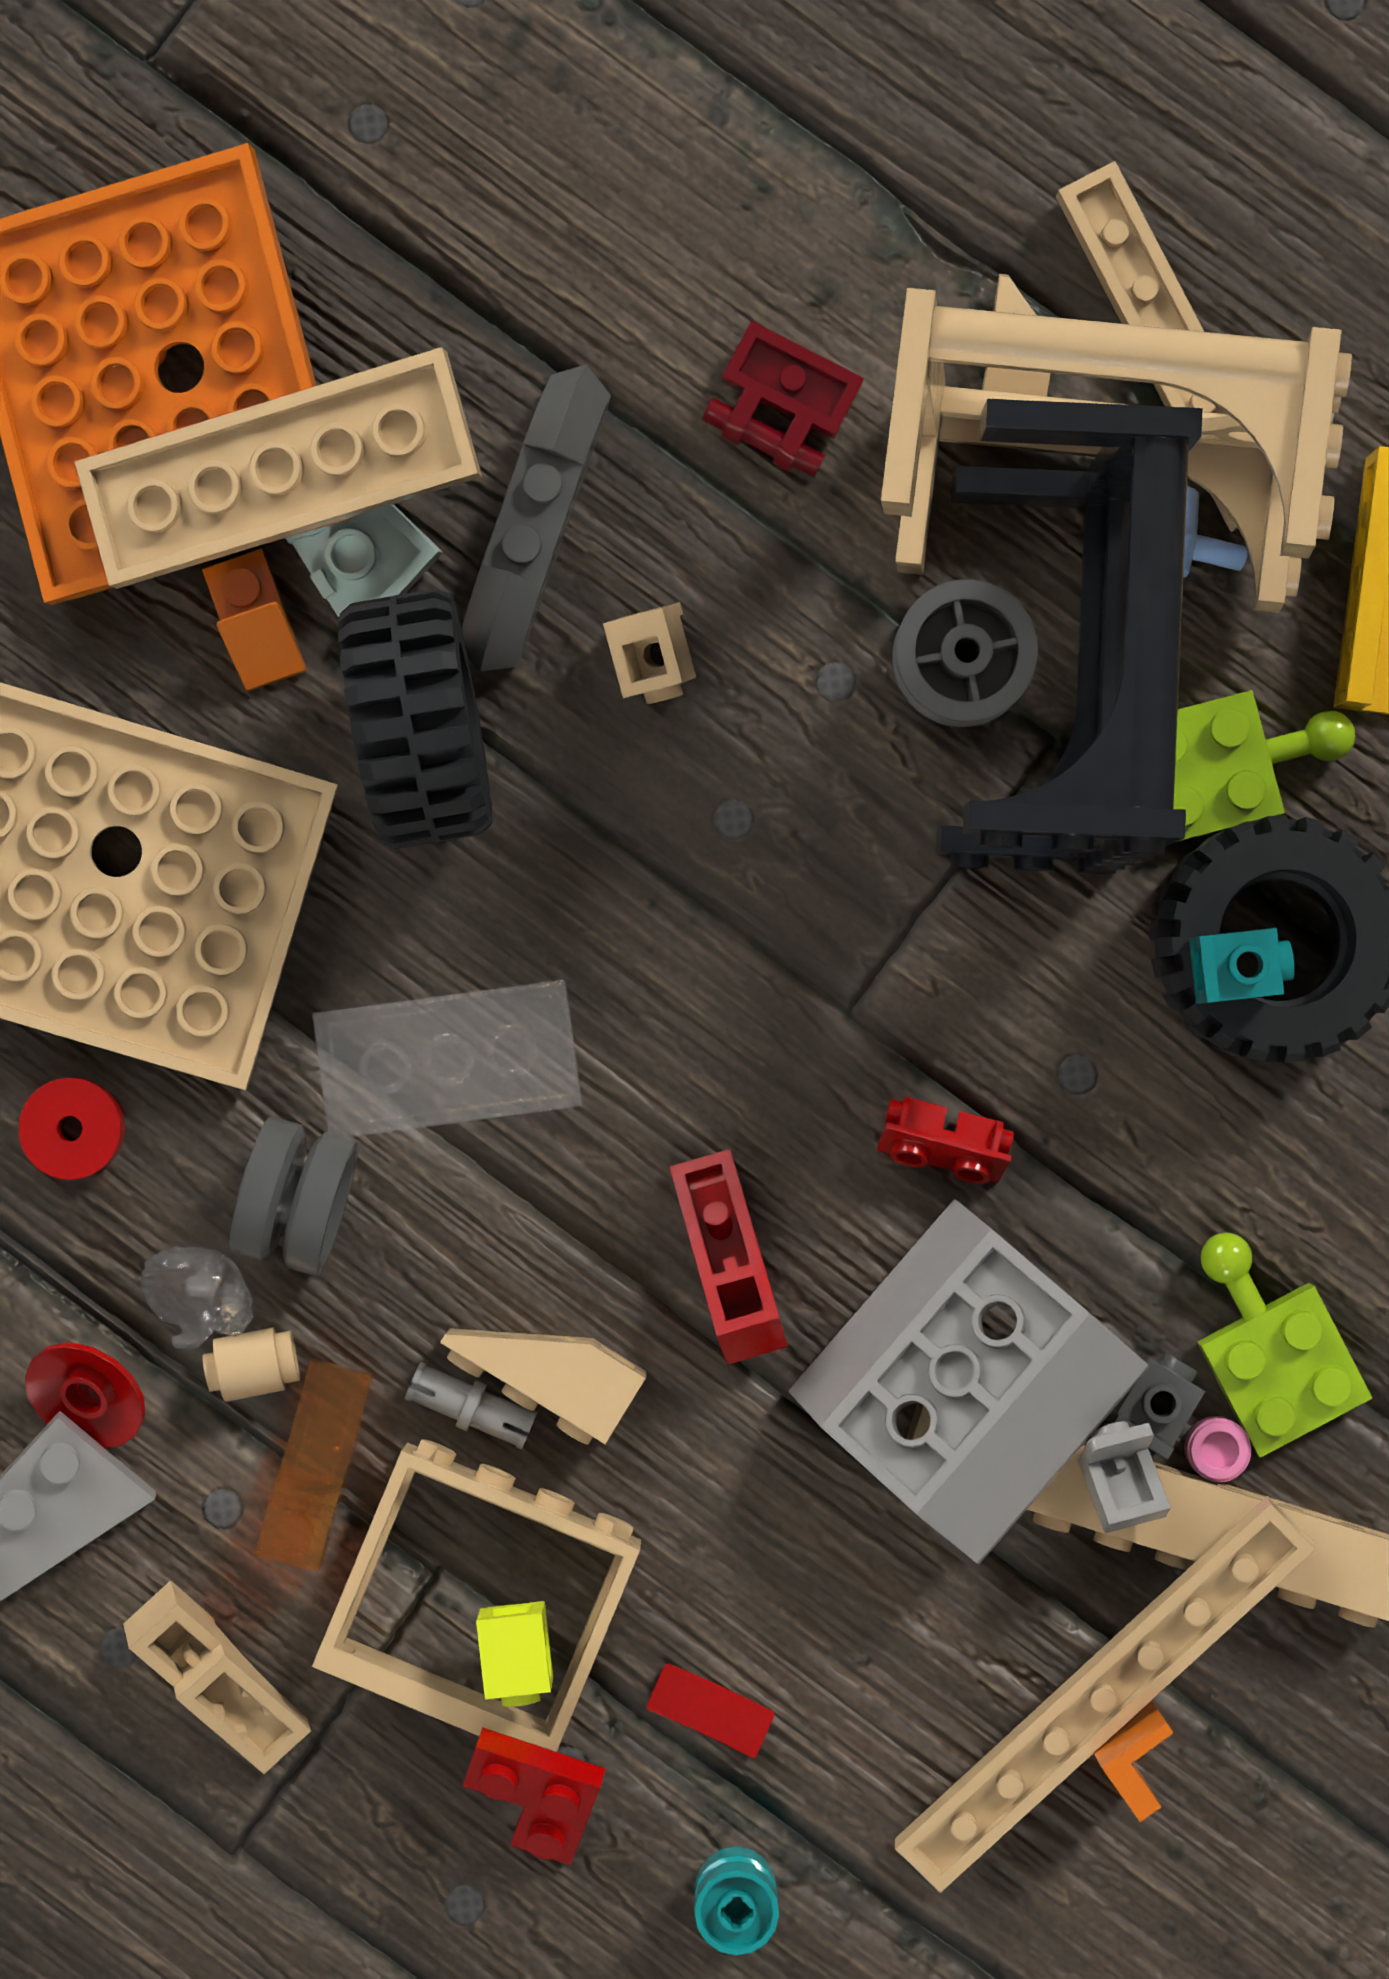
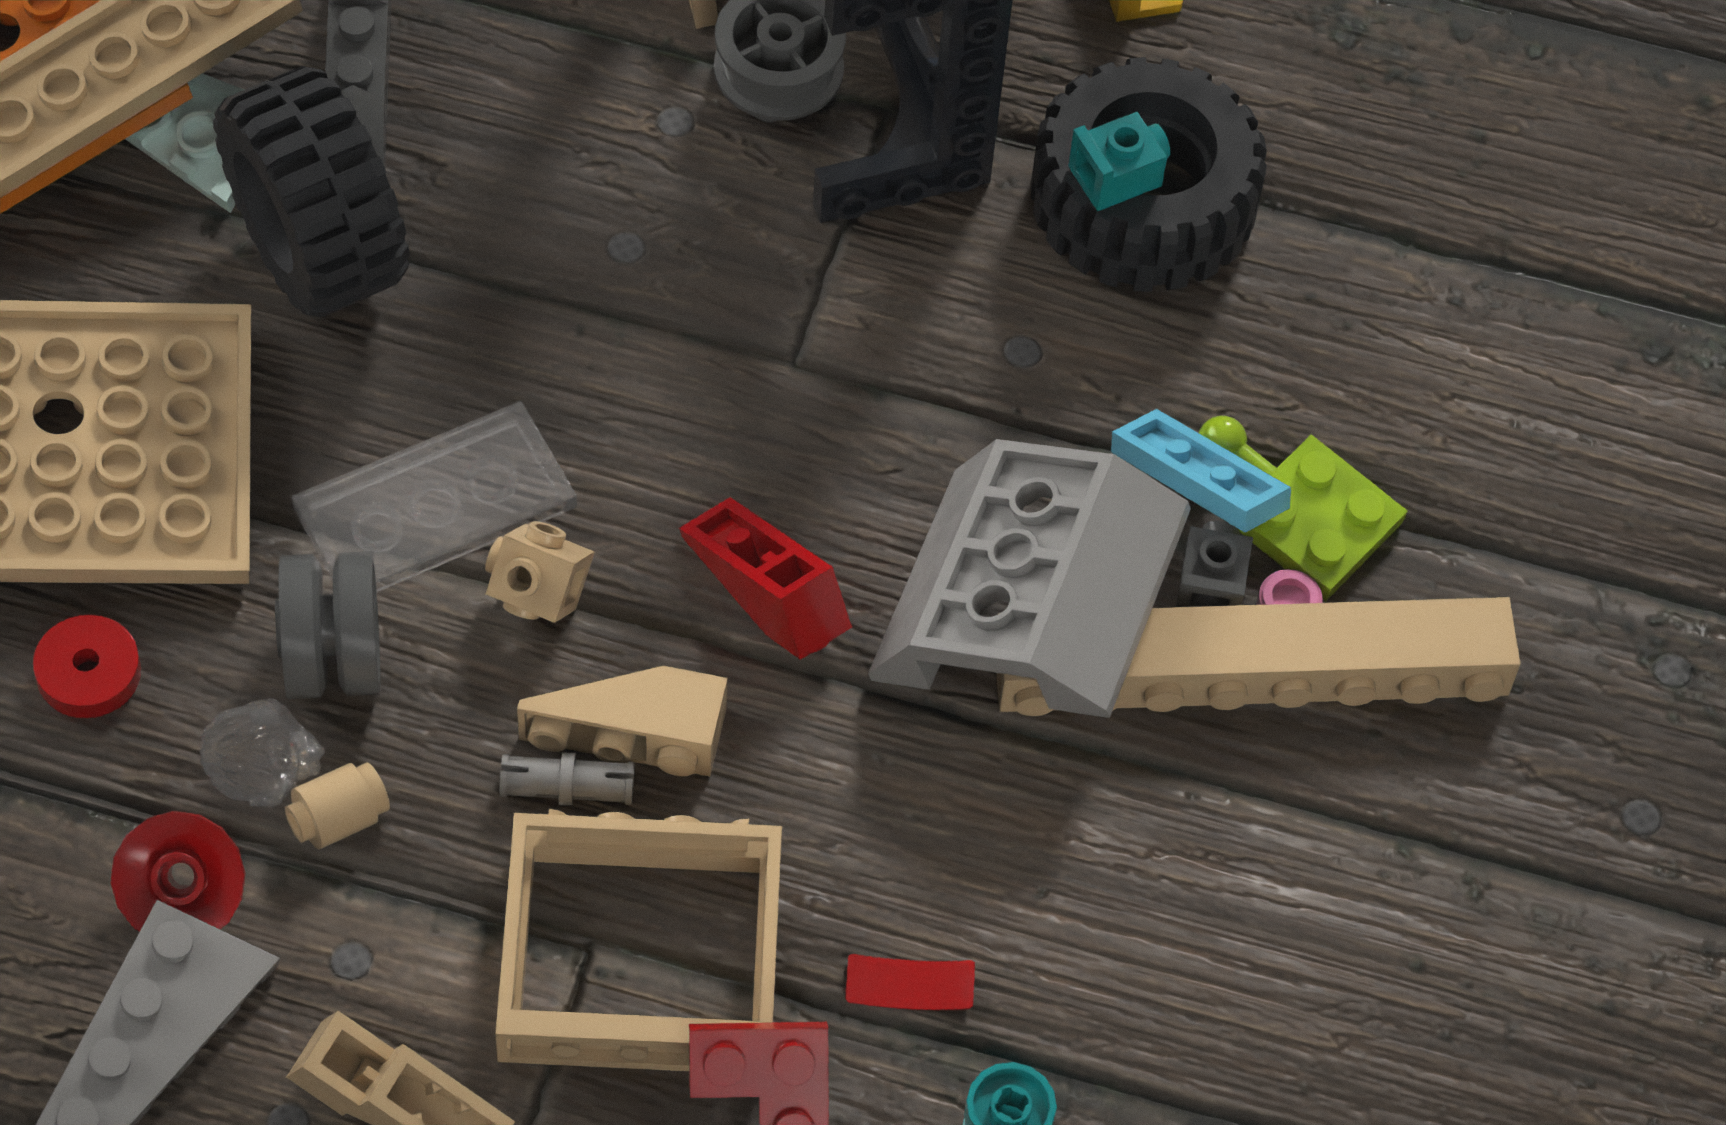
camera: 30 degrees left, 30 degrees down
(254, 620) = (129, 212): orange slope -> none
(315, 1465) = (432, 874): clear orange slope -> none
(512, 1189) = (537, 572): none -> tan brick
(515, 1653) = (695, 937): neon yellow brick -> none
(630, 647) = (492, 112): tan brick -> none
(973, 1152) = (925, 430): red hinge -> none
(1104, 1694) = (1275, 818): tan plate -> none
(1123, 1476) = (1203, 602): light grey bracket -> none
(1127, 1745) = (1329, 861): orange panel -> none
(1186, 1300) = (1201, 470): none -> medium azure plate
(1227, 763) = (1043, 64): lime plate -> none

